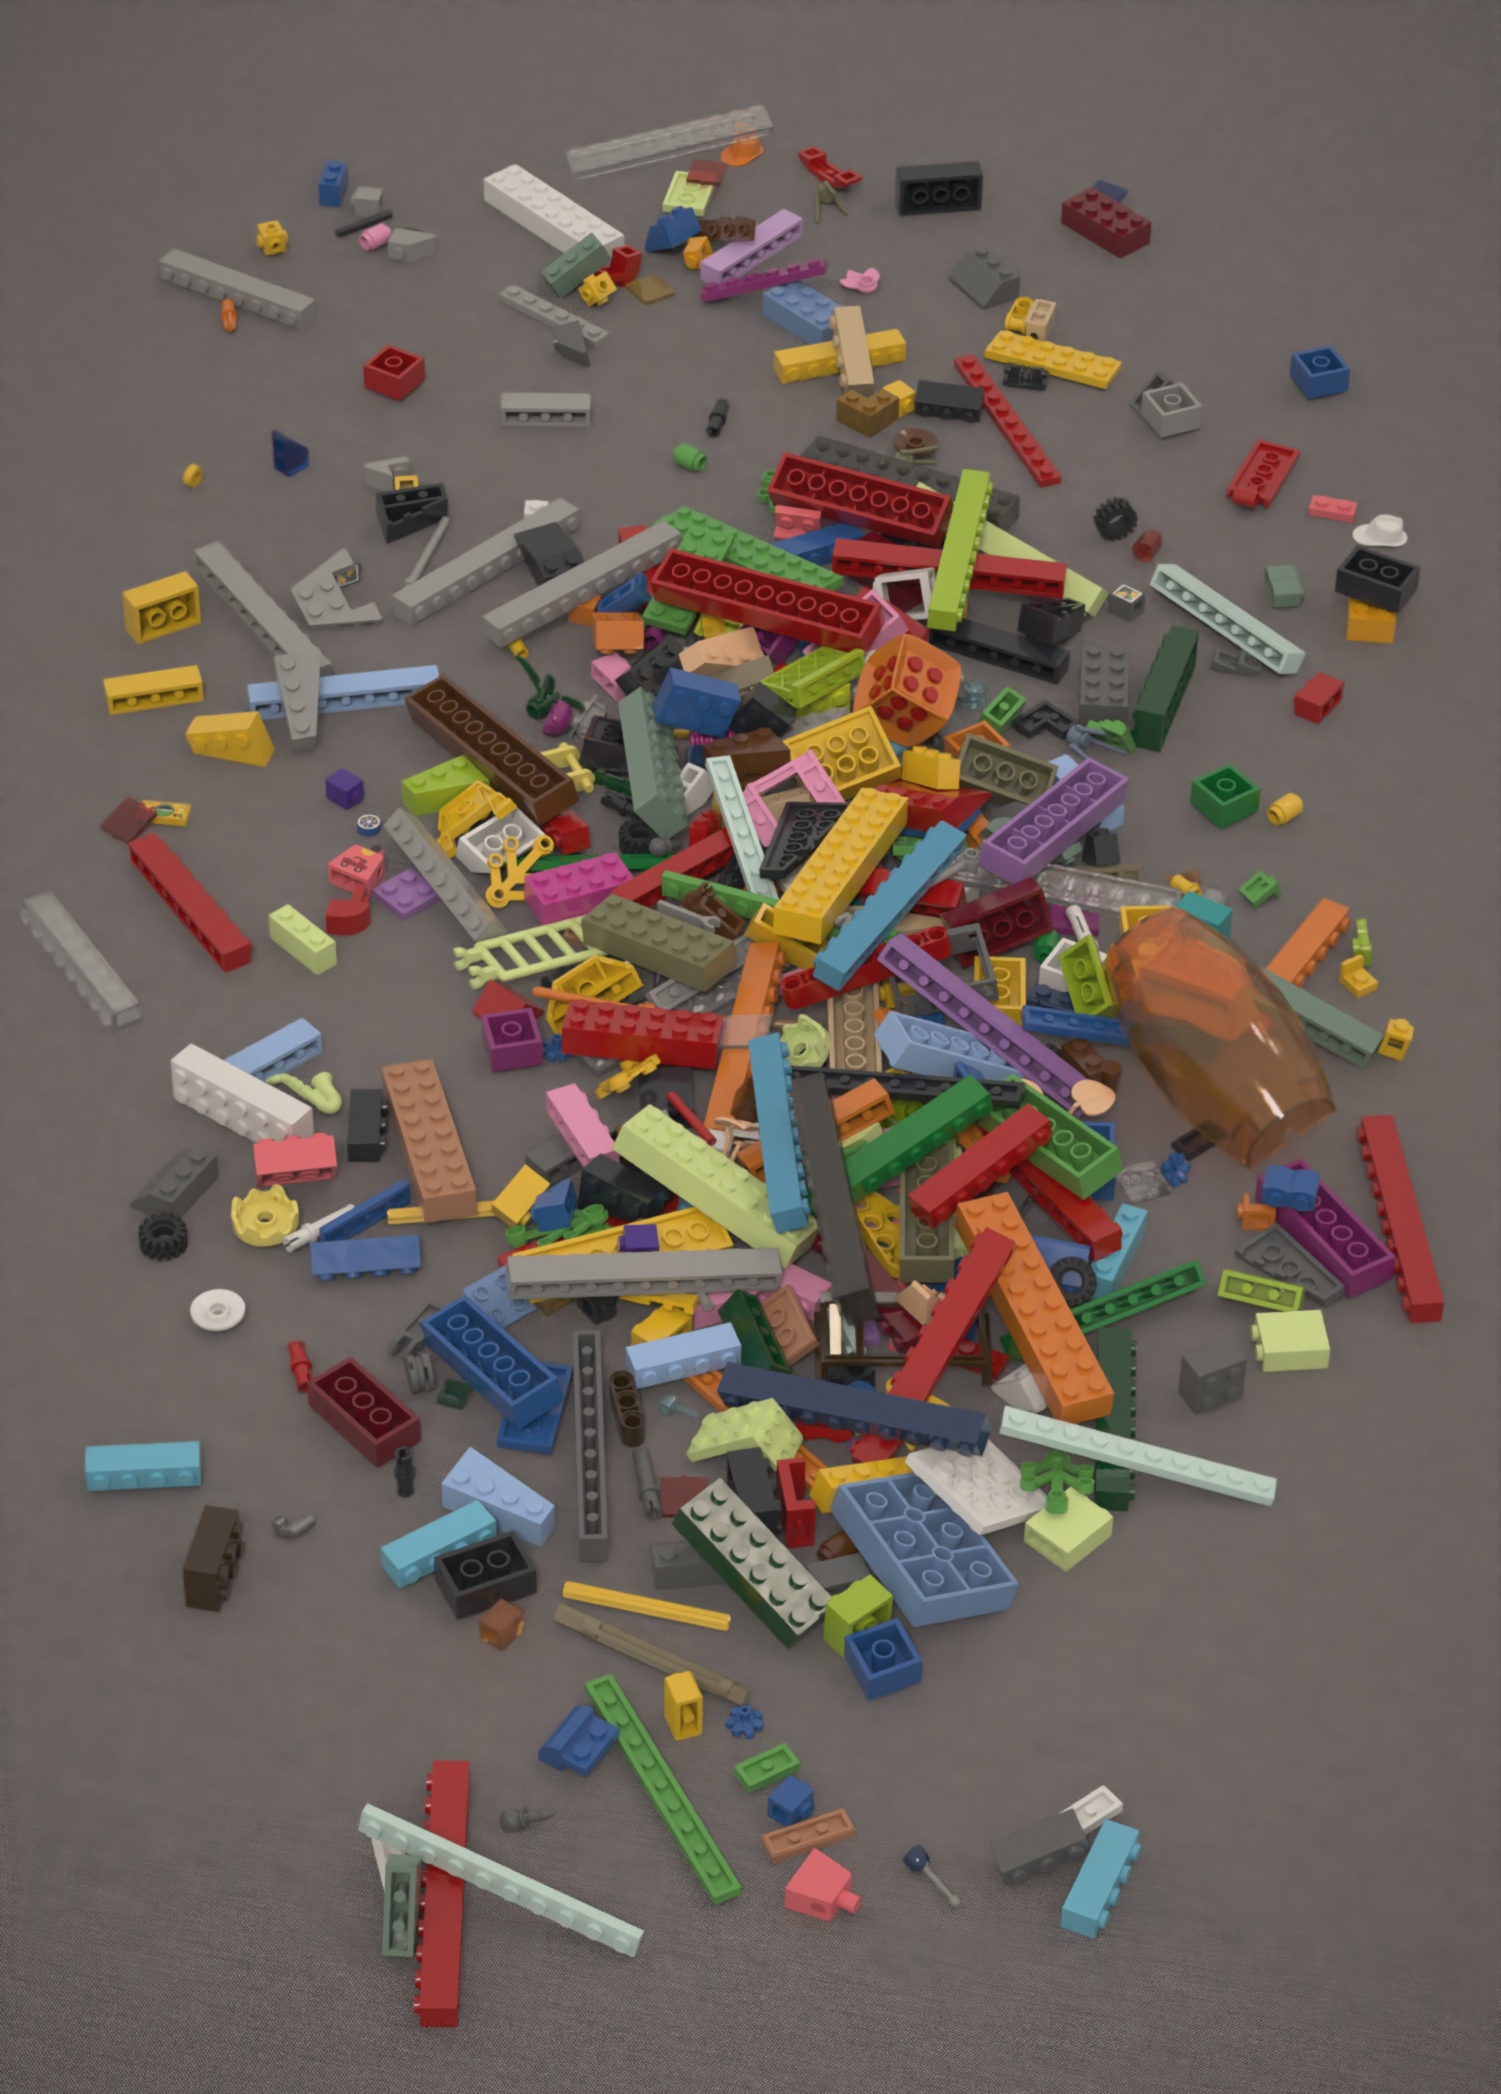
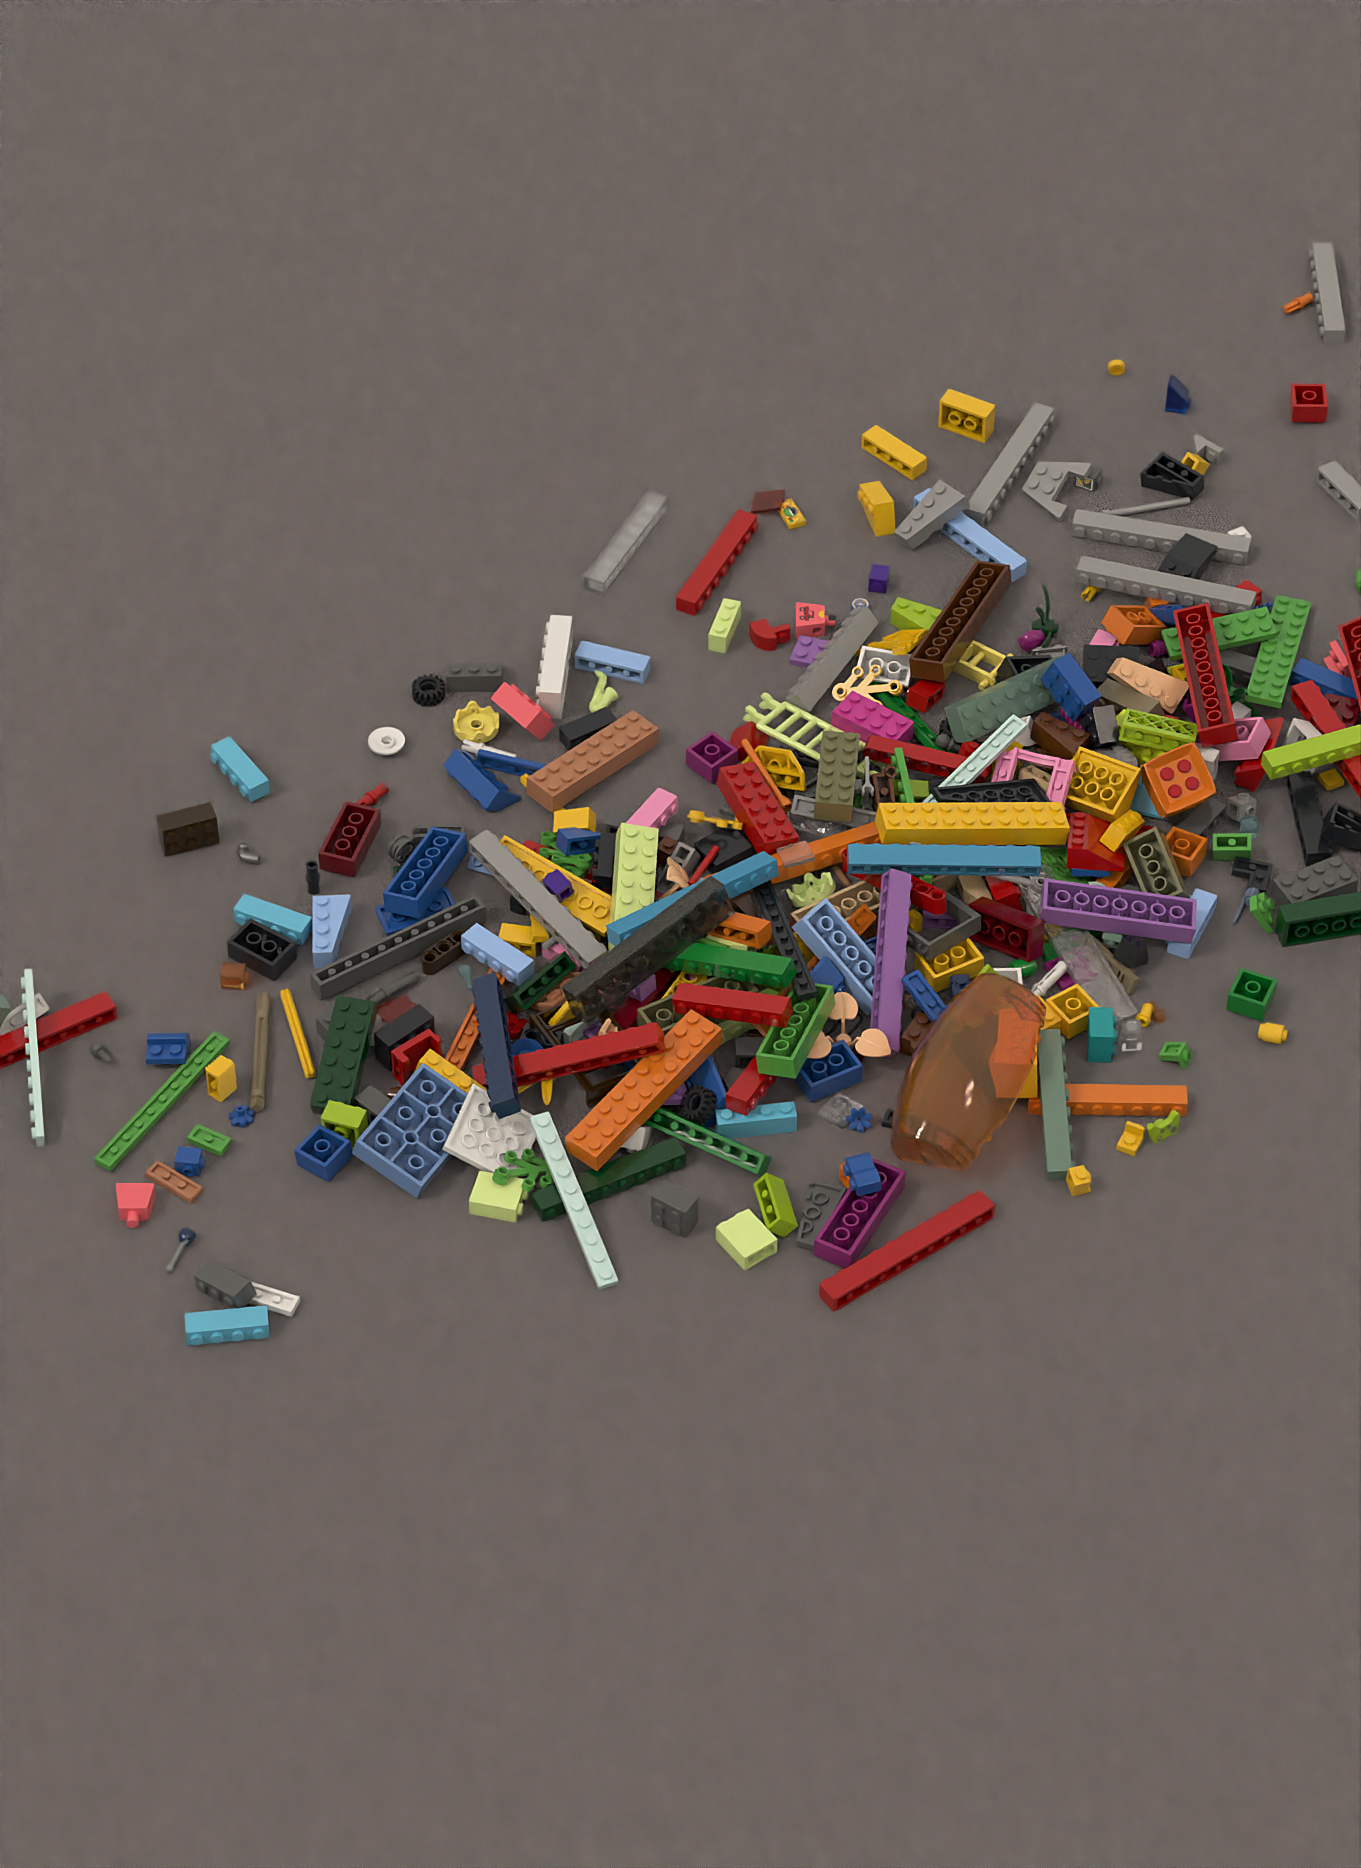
camera: 60 degrees right, 5 degrees up
(745, 1427) = (455, 1017): yellowish green bracket -> none

